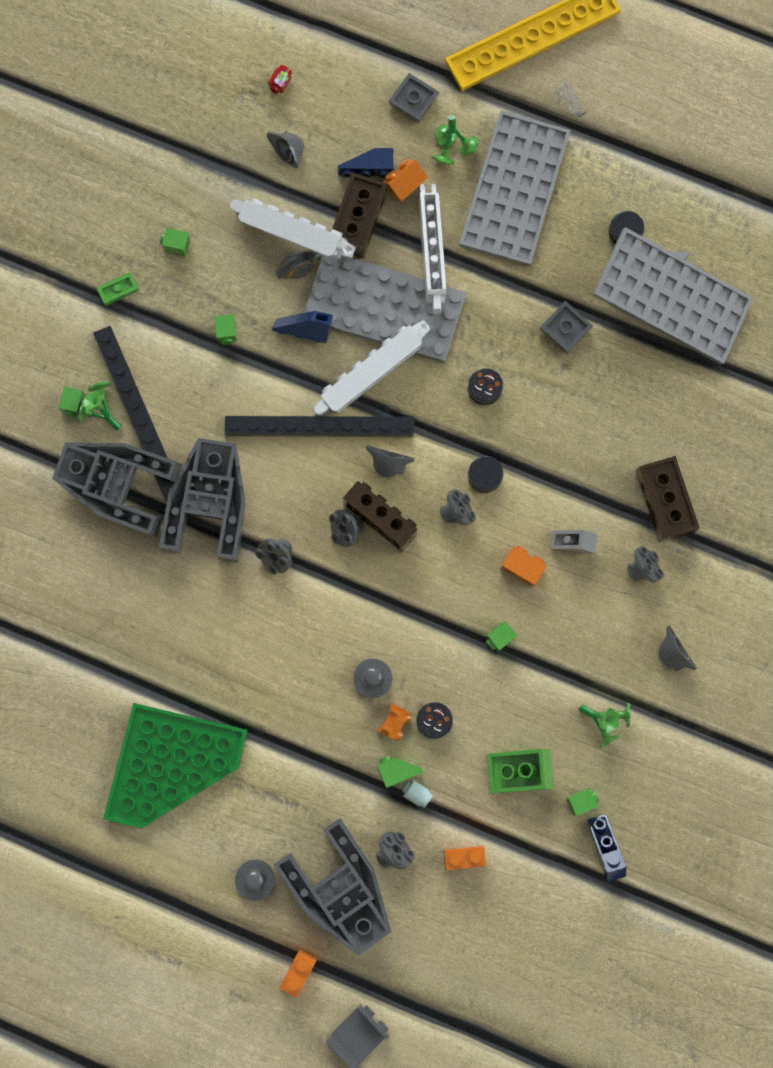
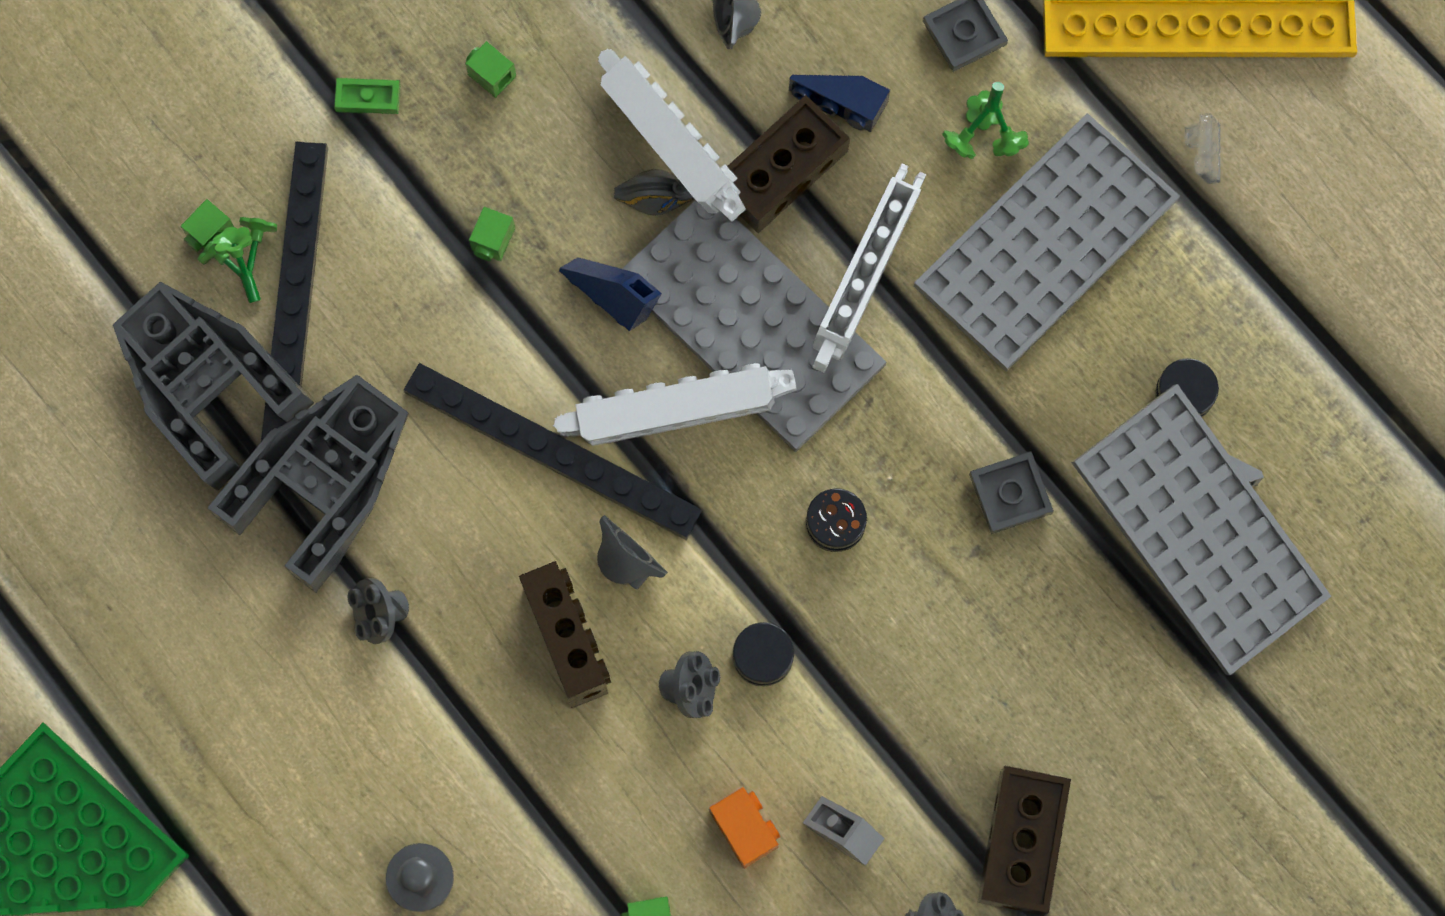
camera: 30 degrees right, 5 degrees down
(345, 527) = (504, 624): dark grey plate -> none
(405, 179) = (882, 145): orange brick -> none

